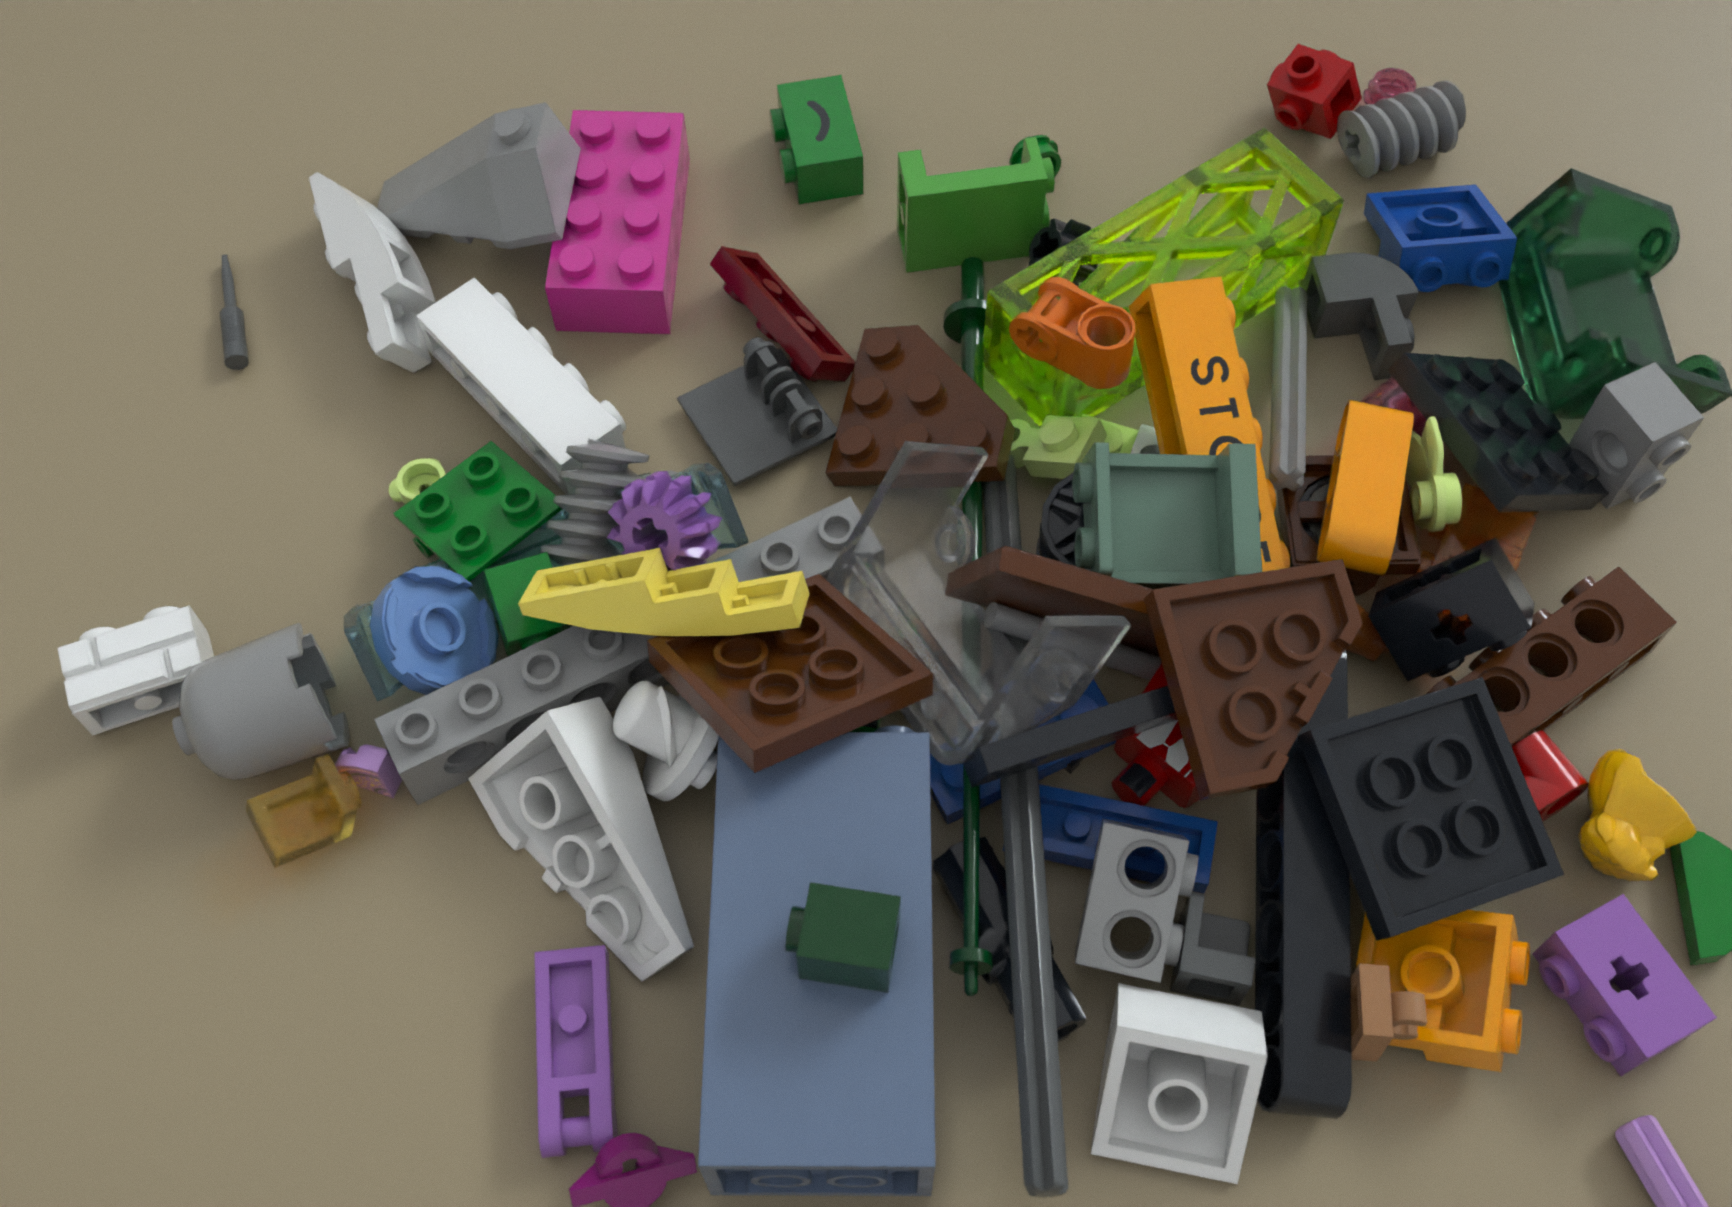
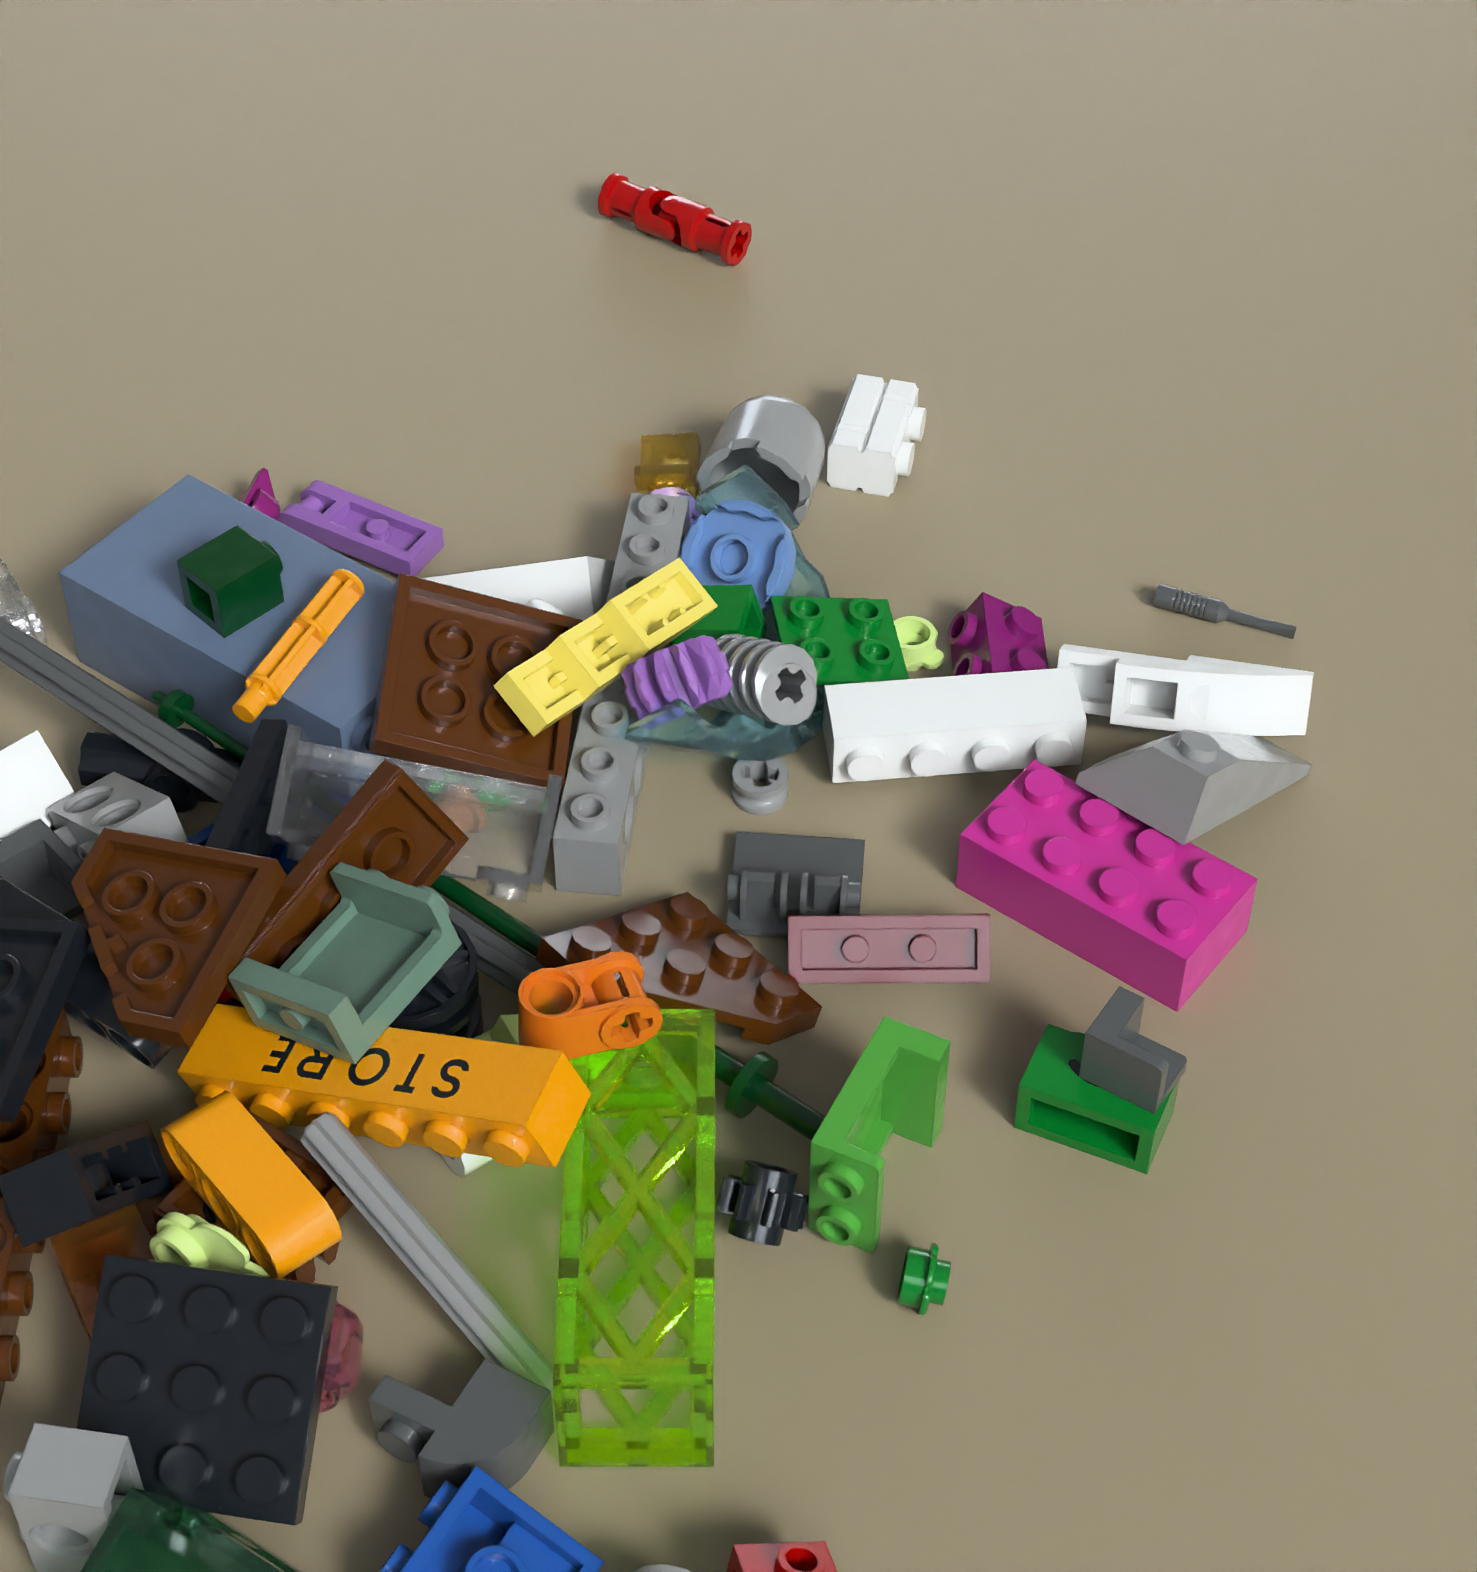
camera: 125 degrees right, 15 degrees down
(404, 417) = (996, 638): none -> magenta bracket
(801, 98) = (1126, 1061): none -> dark grey panel
(867, 825) = (299, 644): none -> light orange piece

